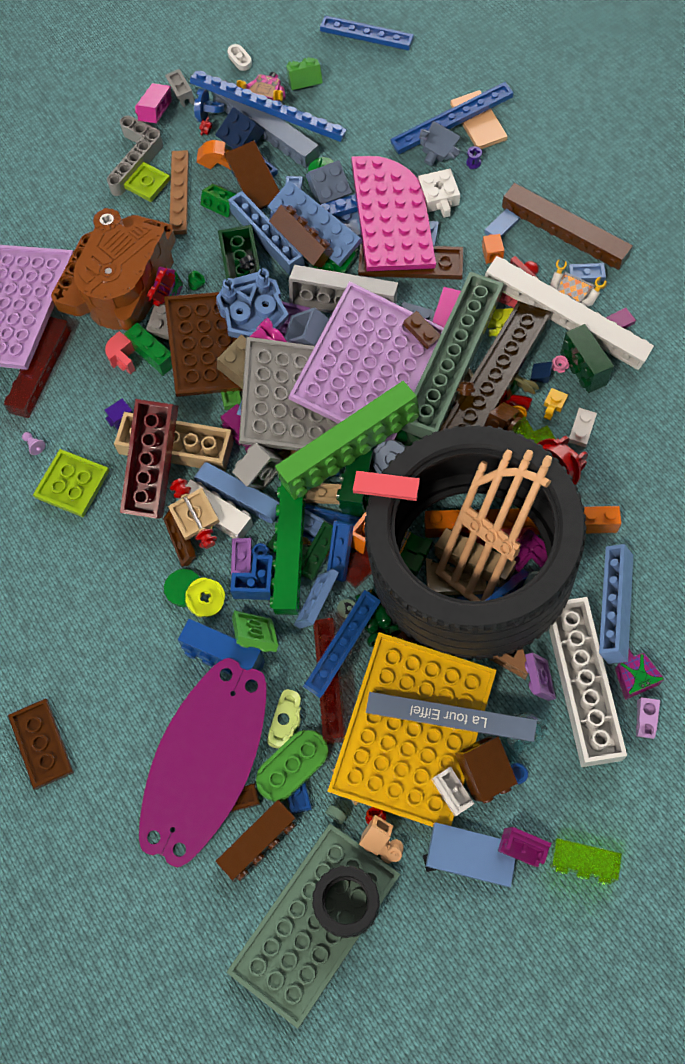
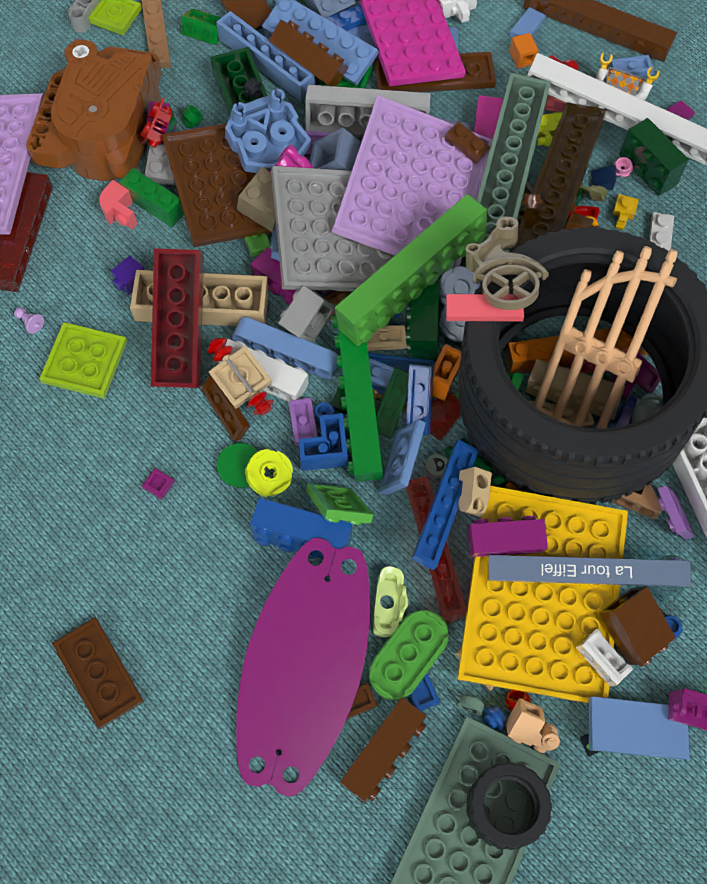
camera: 15 degrees left, 0 degrees up
(114, 594) = (158, 484): none -> magenta tile
(353, 828) = (494, 718): none -> blue plate
(367, 636) = (474, 490): none -> tan leg
(386, 678) = (507, 536): none -> magenta brick
(399, 446) = (491, 263): none -> dark tan piece

